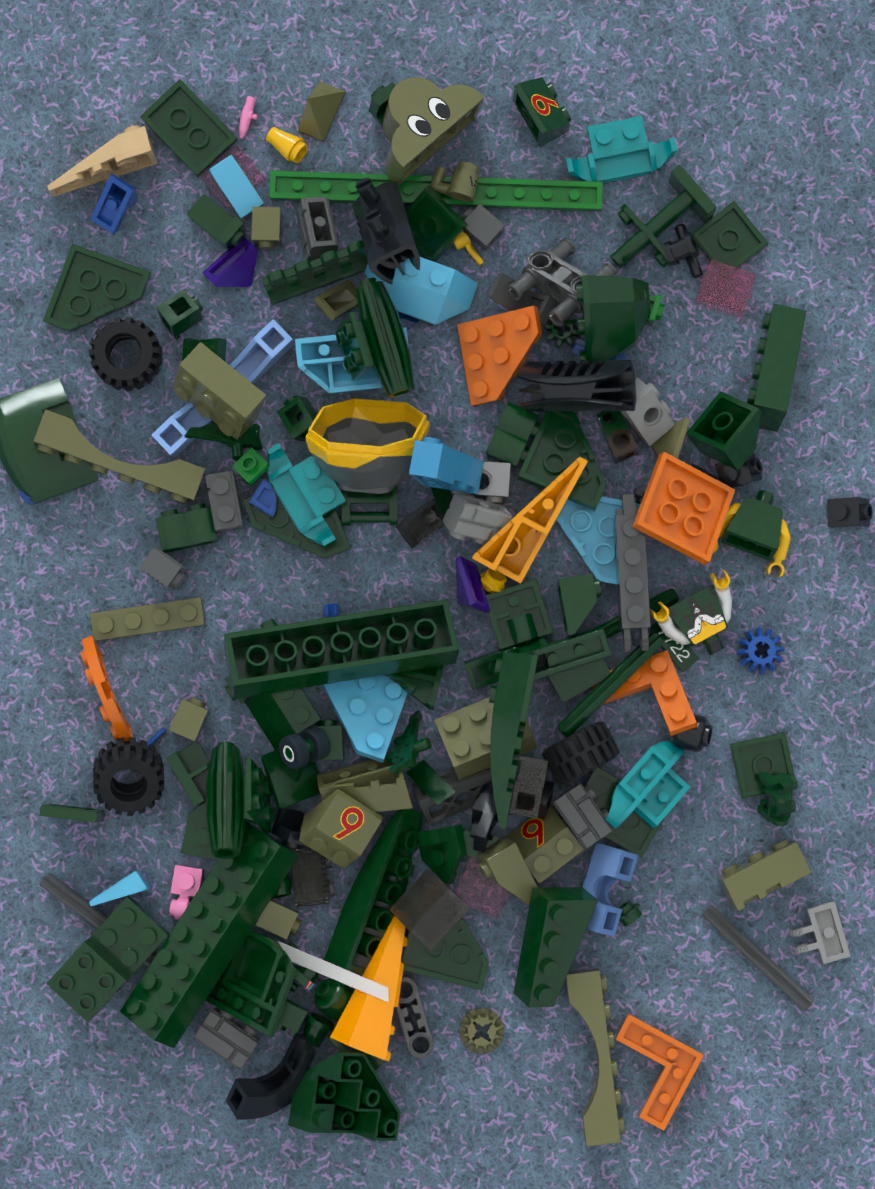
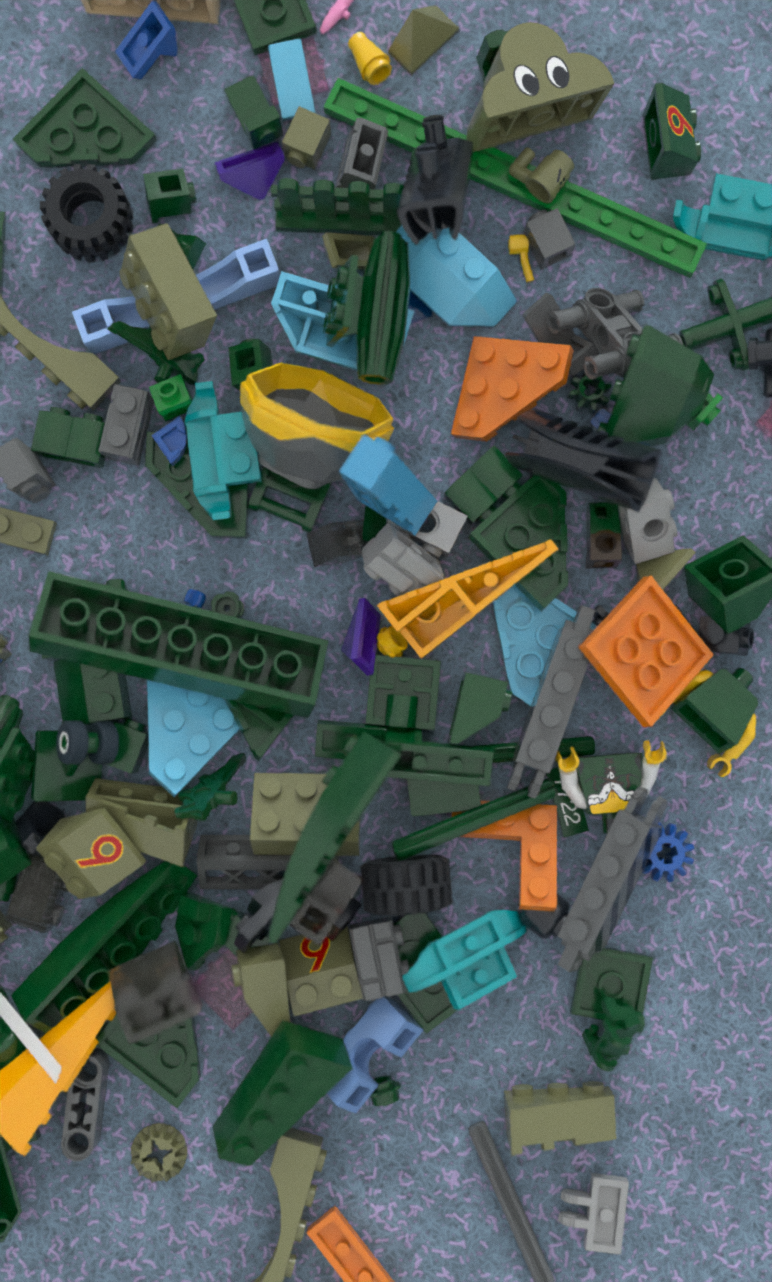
camera: 25 degrees right, 0 degrees up
(358, 599) = (228, 598): none -> dark green plate
(430, 782) = (221, 843): dark green sticker -> none
(433, 224) = (494, 210): dark green tile -> none
(728, 686) = (611, 880): none -> dark grey hinge

